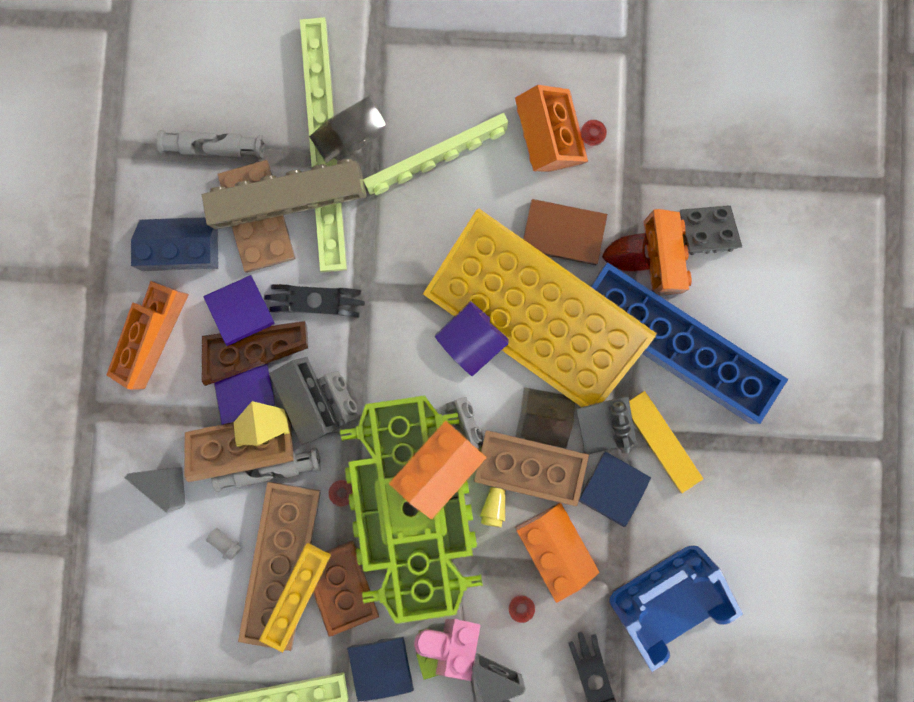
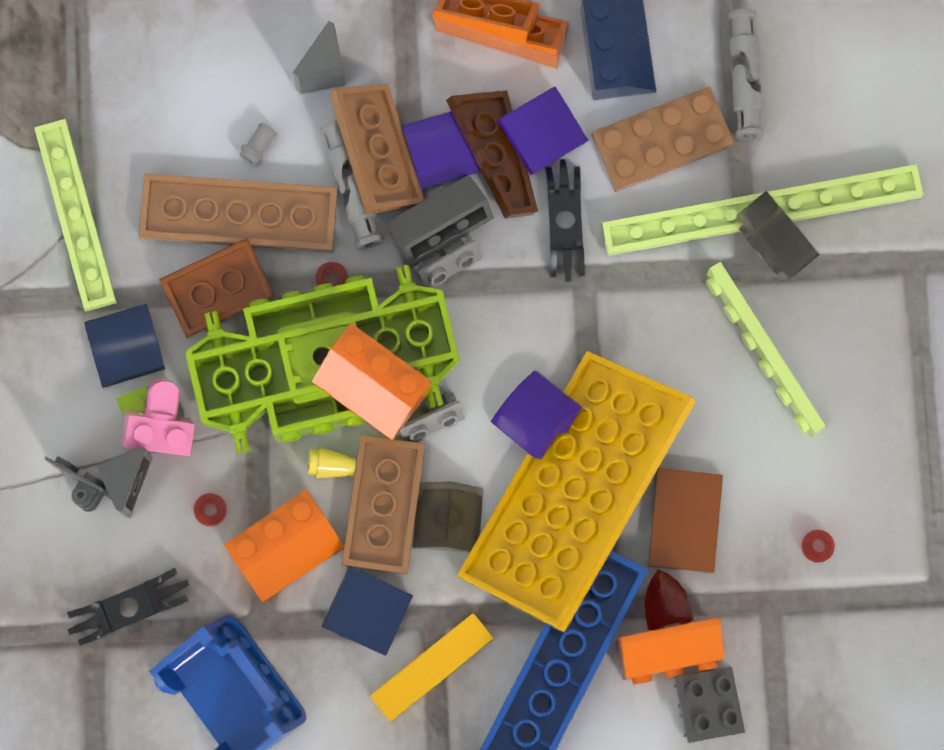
camera: 80 degrees right, 5 degrees down
(259, 424) = (406, 170): light yellow slope -> none
(283, 194) = (689, 169): dark tan brick -> none
(294, 597) = (203, 233): yellow tile -> none
(550, 128) = (815, 491): orange slope -> none
(607, 426) = (444, 593): dark grey hinge -> none

